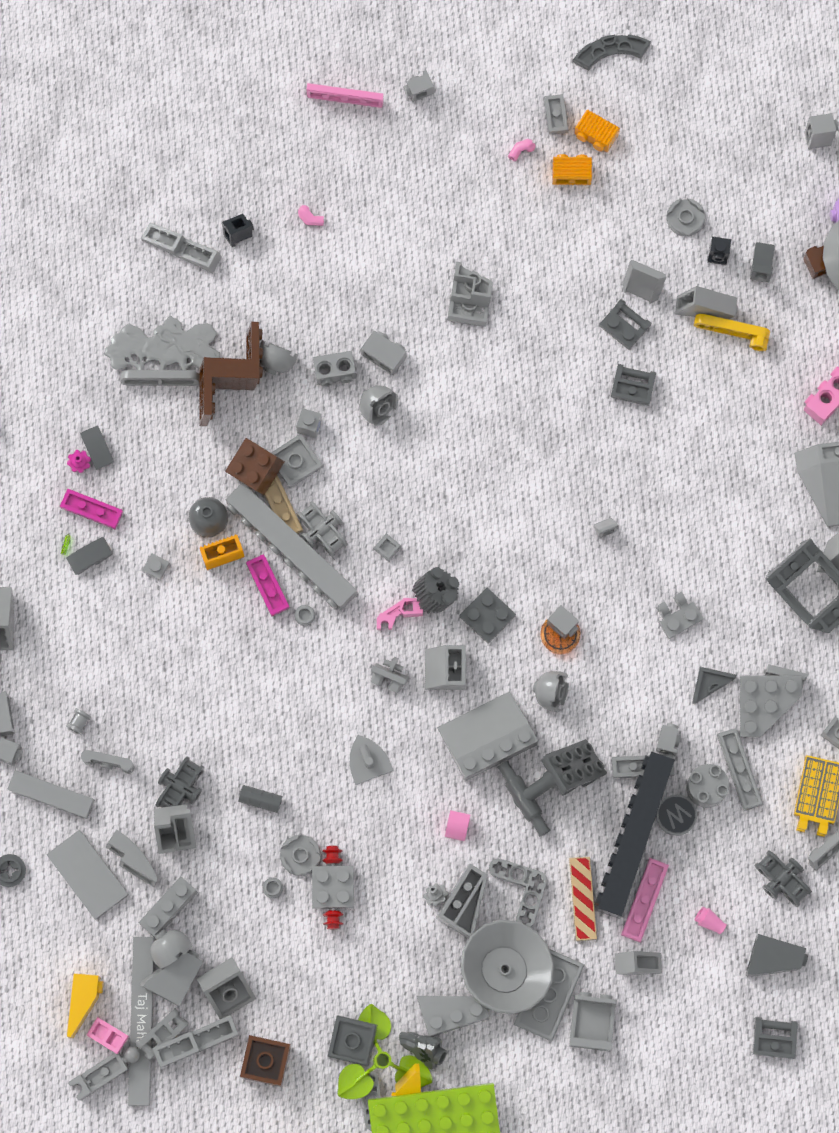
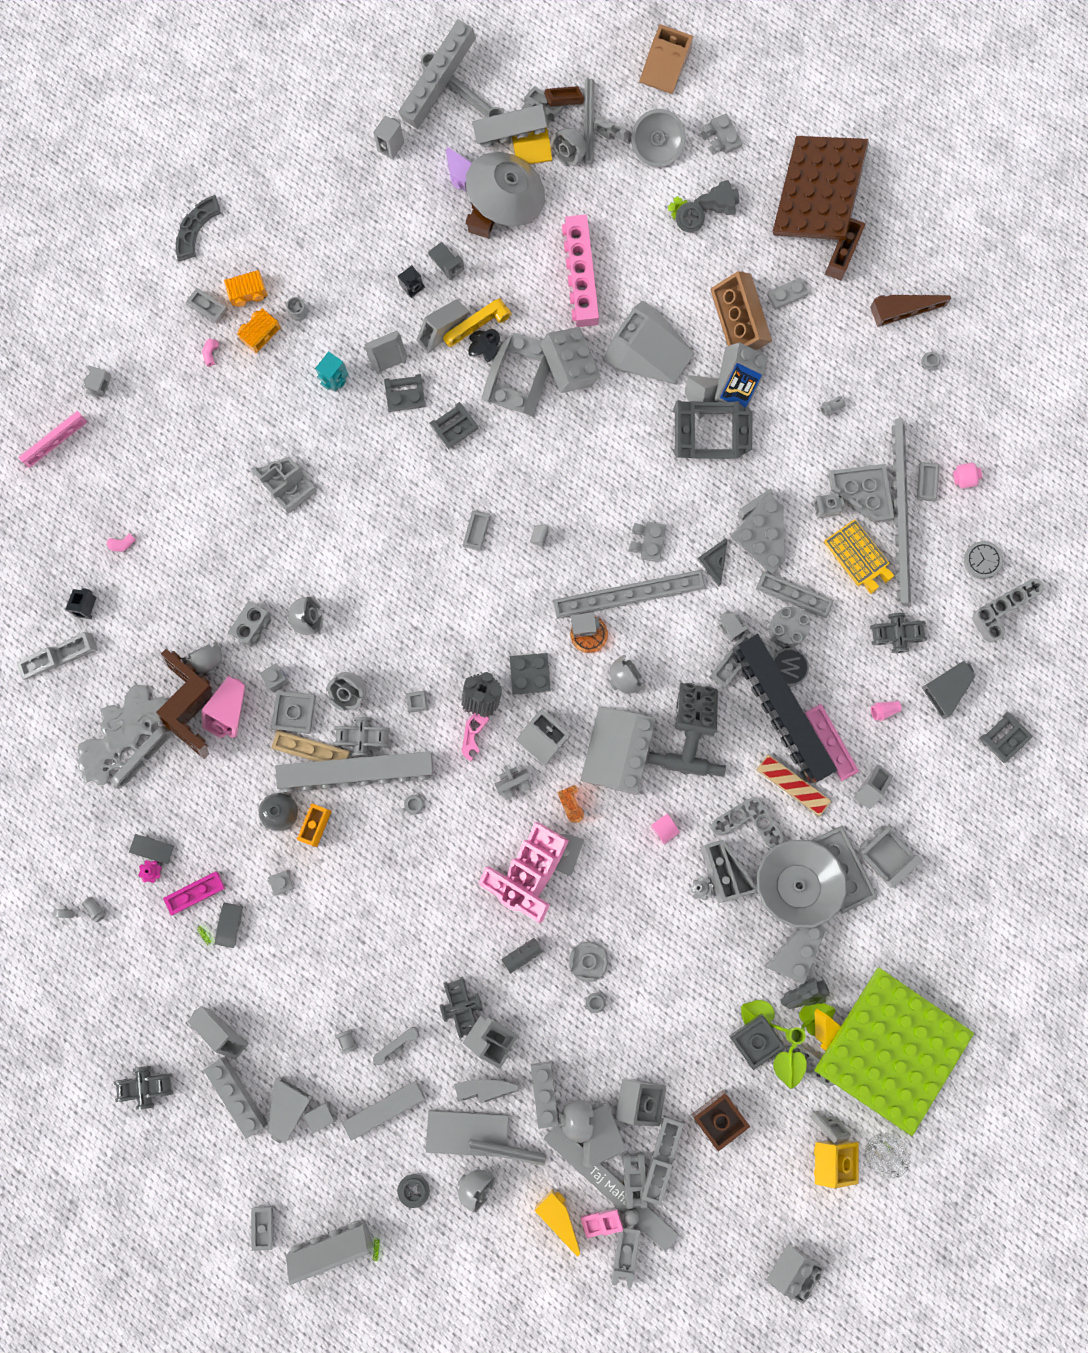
camera: 45 degrees left, 5 degrees up
(14, 445) = (94, 909): none -> light grey pin
(51, 914) = (475, 1188): none -> light grey cylinder
(99, 916) = (506, 1152): none -> light grey axle
(250, 406) = (224, 709): none -> bright pink slope
(254, 466) = (271, 745): reddish brown brick -> none
(267, 585) = (367, 812): dark pink plate -> none
(328, 746) = (528, 873): none -> bright pink slope
(332, 887) = (633, 959): light grey plate -> none
(347, 485) = (346, 691): none -> light grey cylinder
(384, 352) = (270, 578): light grey brick -> none
(408, 739) = (573, 811): none -> clear orange leg
(564, 475) = (476, 530): none -> light grey tile
(588, 255) = (331, 372): none -> teal brick
(618, 180) = (294, 305): none -> light grey wheel
(621, 638) = (629, 594): none -> light grey tile
(681, 221) = (370, 285): light grey tile -> none
(696, 410) = (510, 398): none -> light grey wedge
(719, 351) = (483, 345): none -> black plate
(768, 427) = (570, 359): none -> light grey brick

